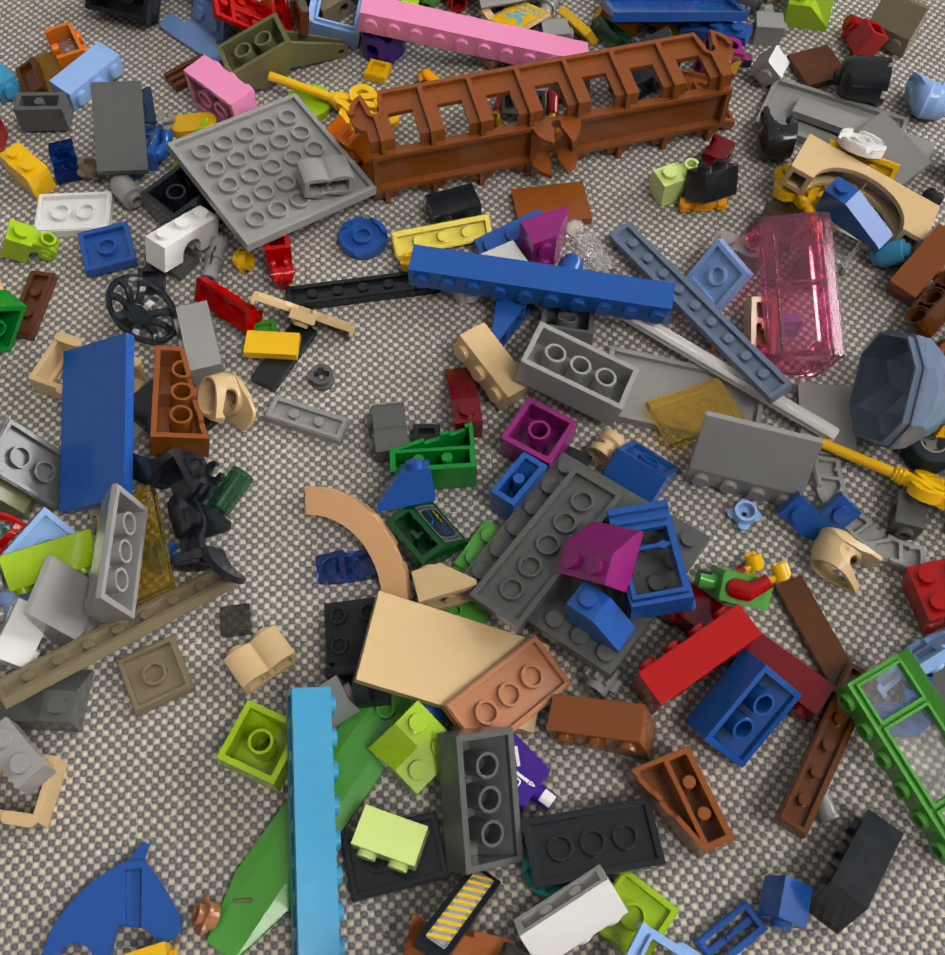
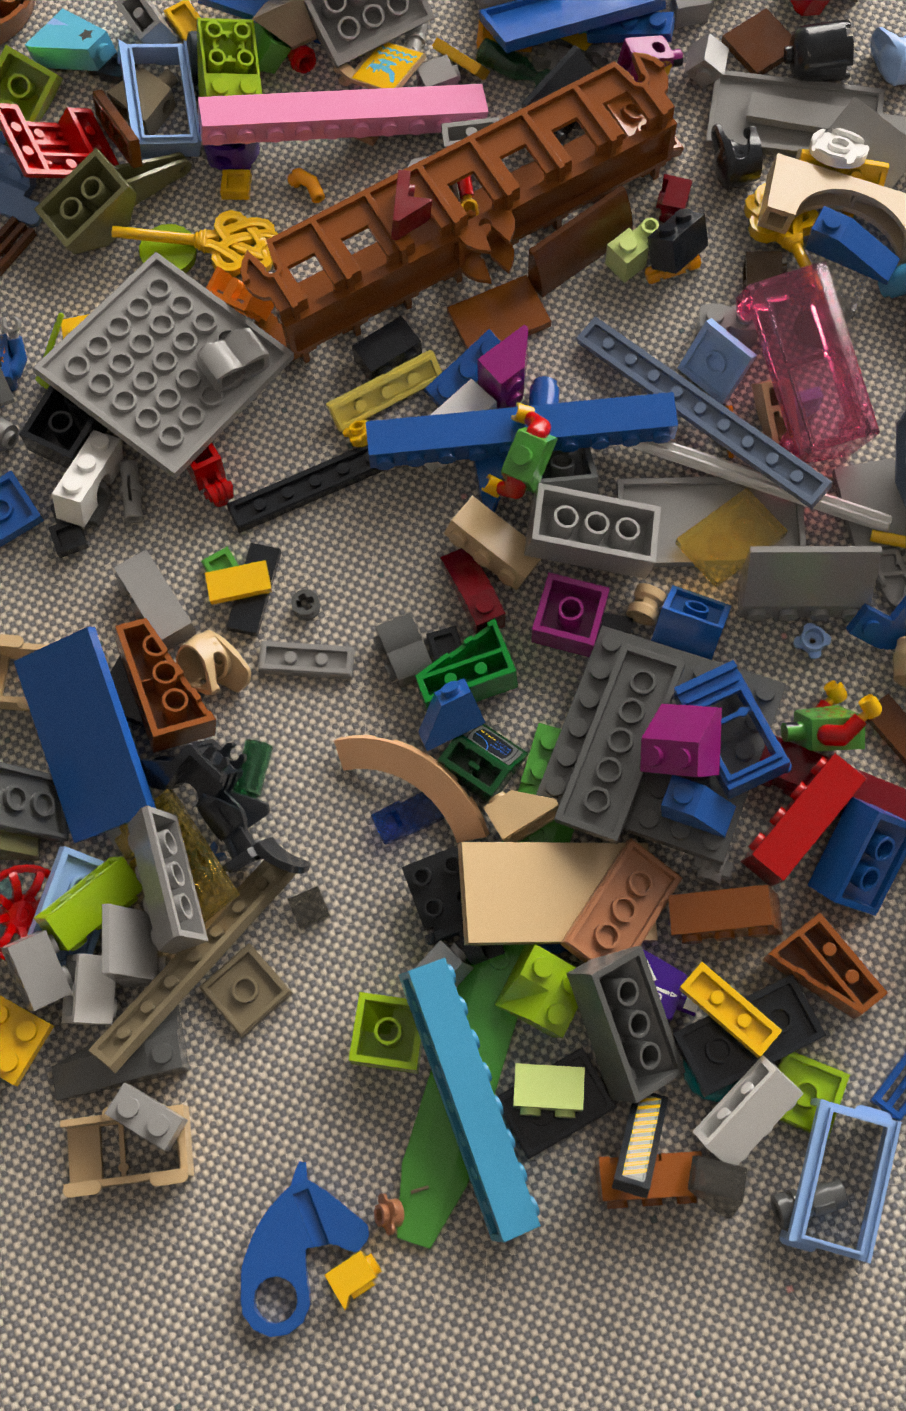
camera: 10 degrees left, 10 degrees up
(137, 314) = (70, 587): black wheel -> none
(188, 123) = (39, 316): yellow tile -> none
(218, 90) = (63, 272): bright pink brick -> none
(227, 304) = (168, 546): red plate -> none
(243, 260) = (165, 484): yellow plate -> none
(260, 659) = (351, 943): tan brick -> none
(302, 315) = (262, 536): tan plate -> none
(362, 238) = (293, 416): blue tile -> none
(495, 91) = (408, 210): none -> dark red slope
(516, 484) = (564, 677): blue slope -> none
(534, 299) = (526, 456): none -> torso
(580, 812) = (730, 1010): none -> yellow plate
(588, 248) = (563, 367): clear plate -> none
(629, 164) = (578, 242): none -> reddish brown slope

